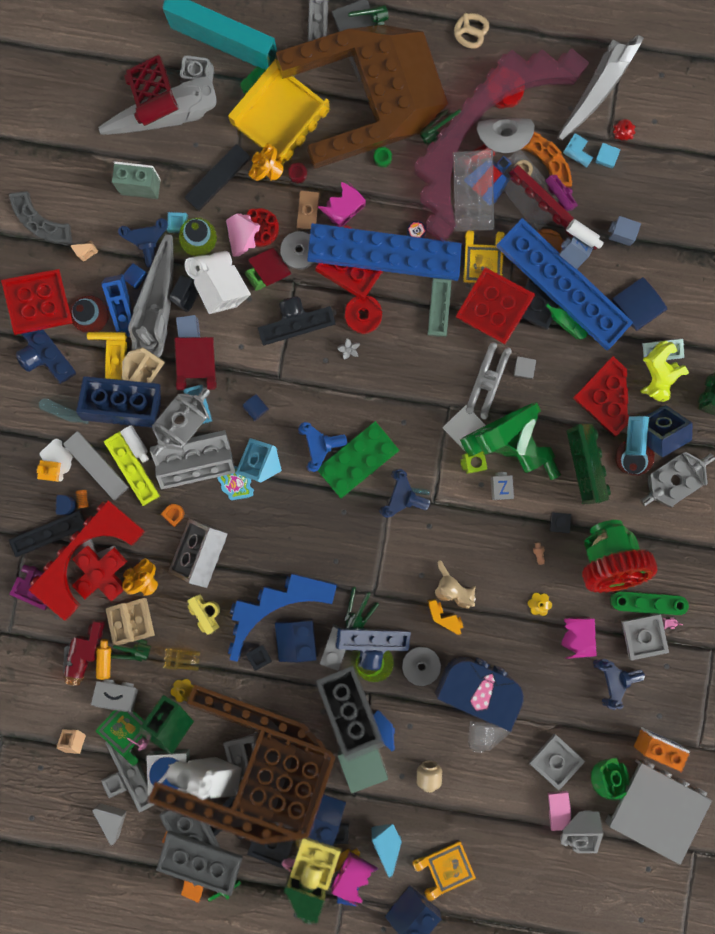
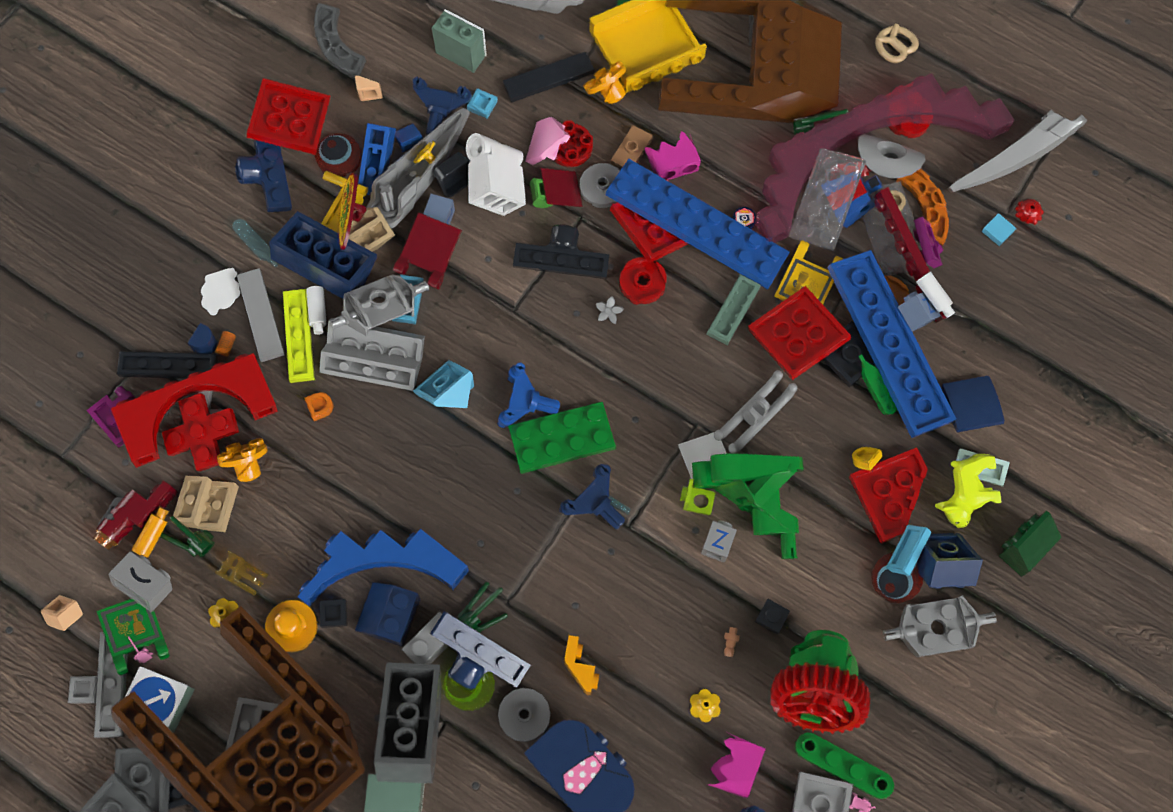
camera: 20 degrees right, 15 degrees down
(48, 470) = (205, 297): light orange tile -> none
(110, 820) = (54, 732): light grey slope -> none
(122, 360) = (347, 209): none -> shield
(155, 286) = (426, 154): none -> yellow plant
(166, 725) = (182, 640): dark green slope -> none
(197, 237) = (497, 122): tile -> none
(198, 553) = (325, 459): flat silver slope -> none
(198, 607) = (294, 521): light yellow plate -> none
(205, 777) = (194, 721): white piece -> none
(234, 678) = (292, 625): none -> light orange plate
(236, 486) = (407, 406): sticker -> none
(255, 407) = (471, 328): dark blue brick -> none
(297, 173) = (638, 107): dark red tile -> none
(382, 157) = (740, 129): green tile -> none
(386, 729) = (443, 774): blue slope -> none
(450, 589) = (603, 635): tan animal -> none
(524, 367) = (805, 418): light grey tile -> none
(575, 152) = (964, 207): medium azure piece -> none
(580, 379) = (866, 457): none -> yellow tile
(587, 464) = (836, 556): dark green slope -> none
(624, 230) = (985, 315): sand blue brick -> none

